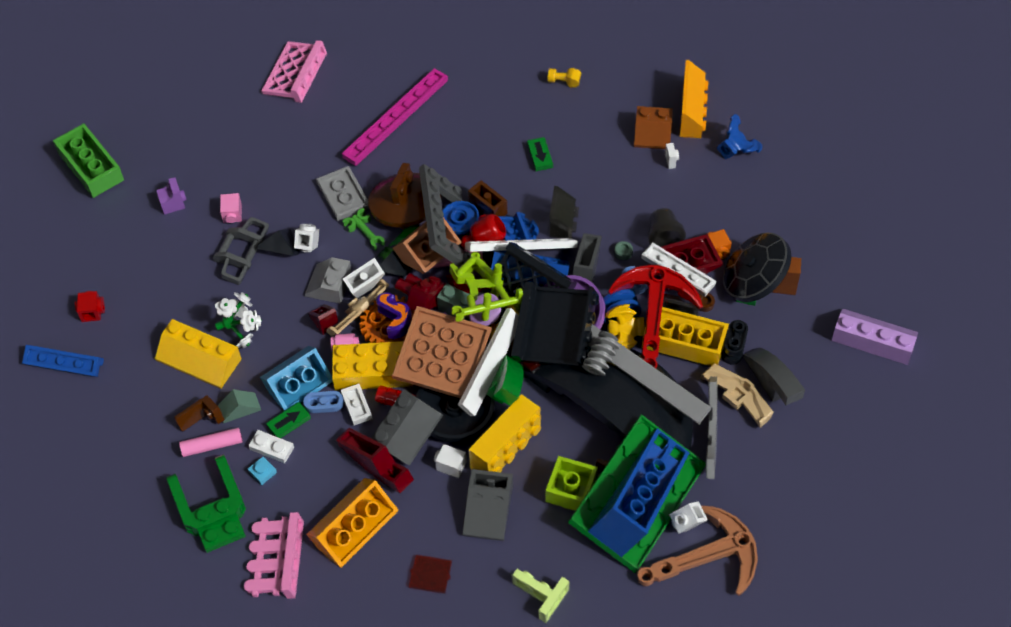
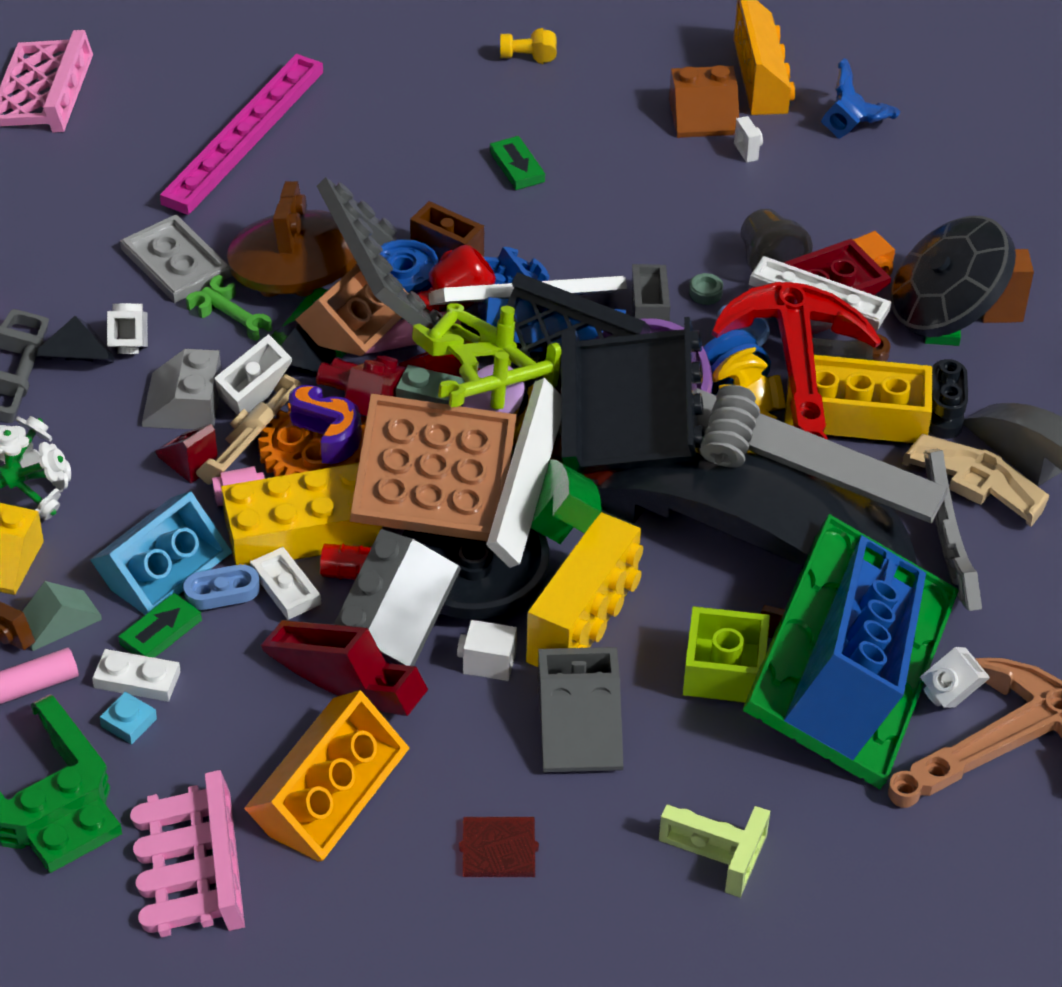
camera: 15 degrees left, 10 degrees down
(563, 214) = (586, 240): clear smoke slope -> none

